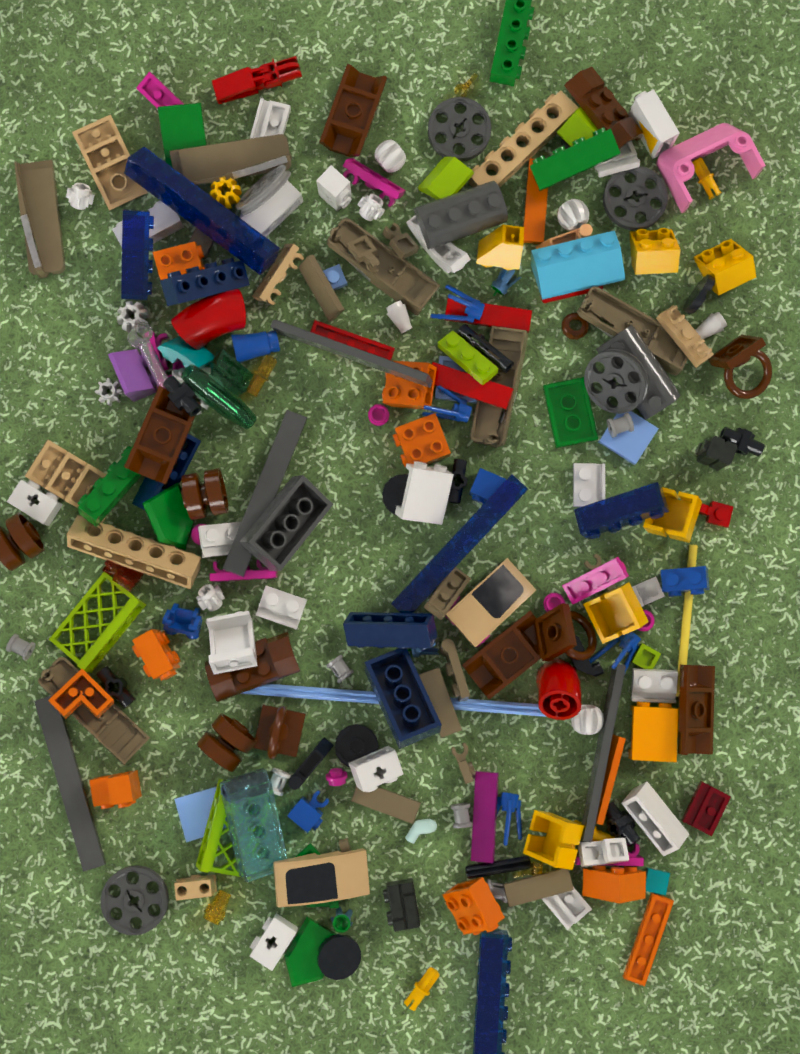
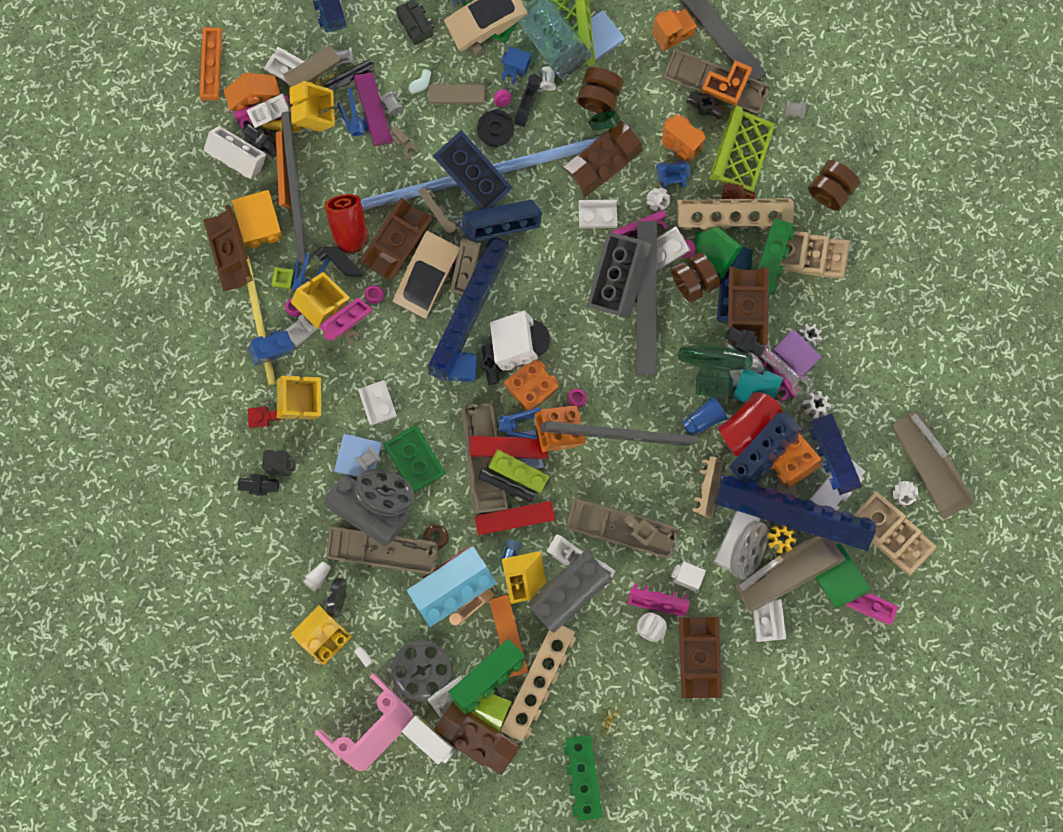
camera: 160 degrees right, 5 degrees down
(23, 497) = (841, 222): white brick -> none
(231, 642) = (626, 168): white panel -> none
(235, 707) = (604, 120): none -> dark green plate
(249, 81) = (805, 651): red arm -> none
(261, 375) = (688, 395): clear yellow axle -> none
(279, 731) = (561, 117): reddish brown tile -> none
(321, 288) = (666, 488): dark tan tile -> none
(335, 277) = (659, 502): light blue plate -> none
(340, 668) = (531, 181): light grey bush -> none
(353, 340) = (622, 451): red tile -> none
(365, 767) = (473, 112): white brick -> none
(371, 207) = (650, 574): white gear -> none
(398, 314) = (590, 488): white cone -> none
(401, 243) = (612, 552): dark tan plate -> none
(441, 701) = (440, 181): dark tan tile -> none
(446, 178) = (595, 623): lime slope -> none
(455, 120) = (594, 669): dark grey wedge -> none
(473, 307) = (528, 514): blue plant -> none
(473, 906) = (358, 36): orange brick -> none
(557, 634) = (363, 264): reddish brown tile -> none
(573, 214) = (471, 631): white piece -> none
(588, 721) = (314, 210): white piece -> none
(621, 510) = (343, 384): clear blue brick -> none
(654, 251) = (388, 626): yellow slope -> none
(654, 685) = (268, 257): white plate -> none
(657, 881) = (218, 108): teal tile -> none
(685, 336) = (337, 558): tan plate -> none
(689, 230) = (363, 656): none -> white tile
(705, 178) = (362, 710): yellow axle -> none
(706, 808) = (195, 176): dark red plate -> none
(737, 354) = (286, 557): reddish brown tile -> none

